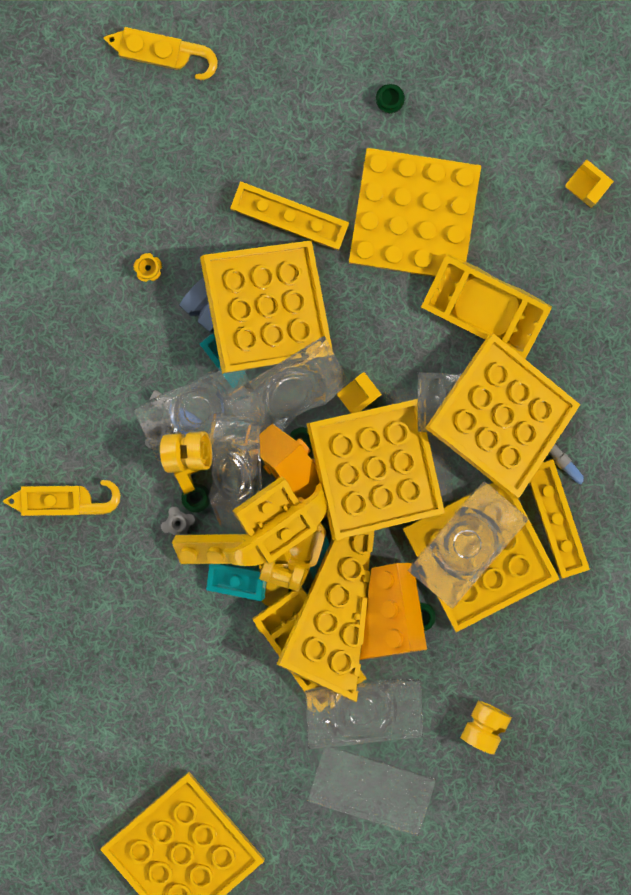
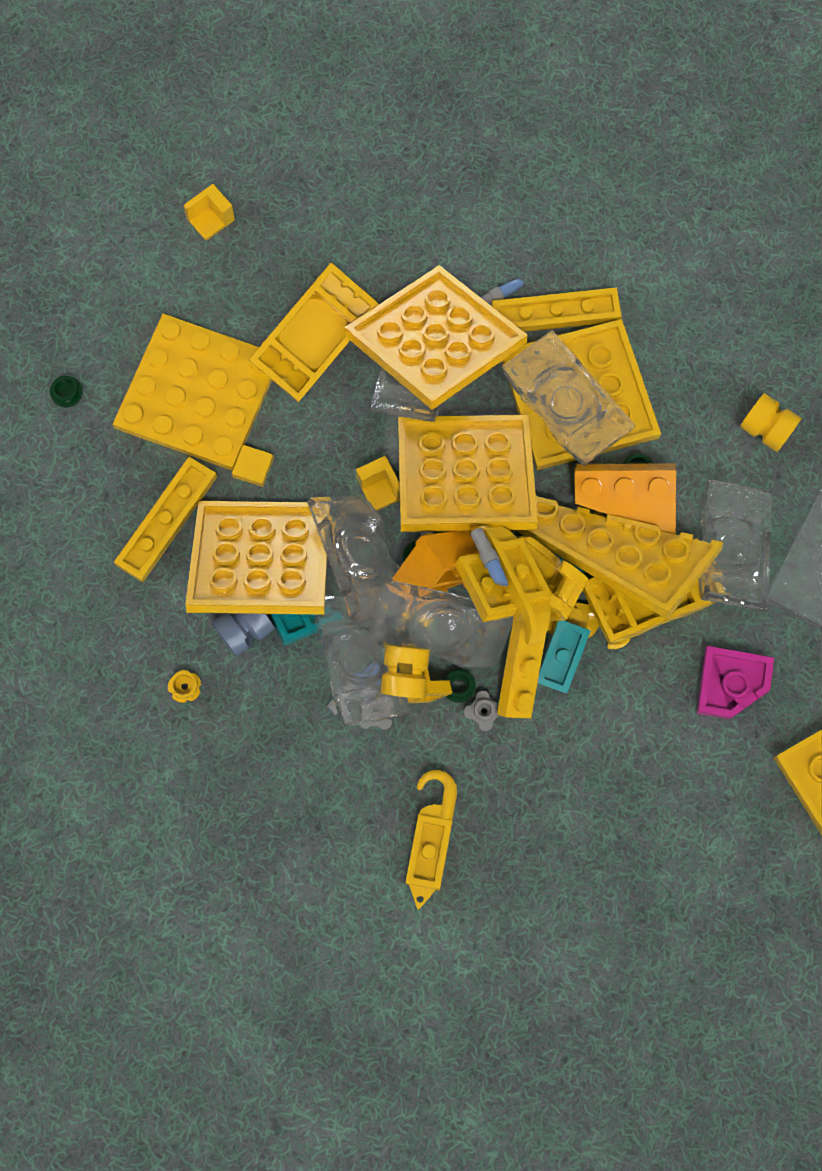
camera: 85 degrees left, 15 degrees down
(245, 727) = (732, 681): none -> dark pink plate
(290, 504) = (489, 557): none -> piece
(355, 279) = (252, 465): none -> yellow tile

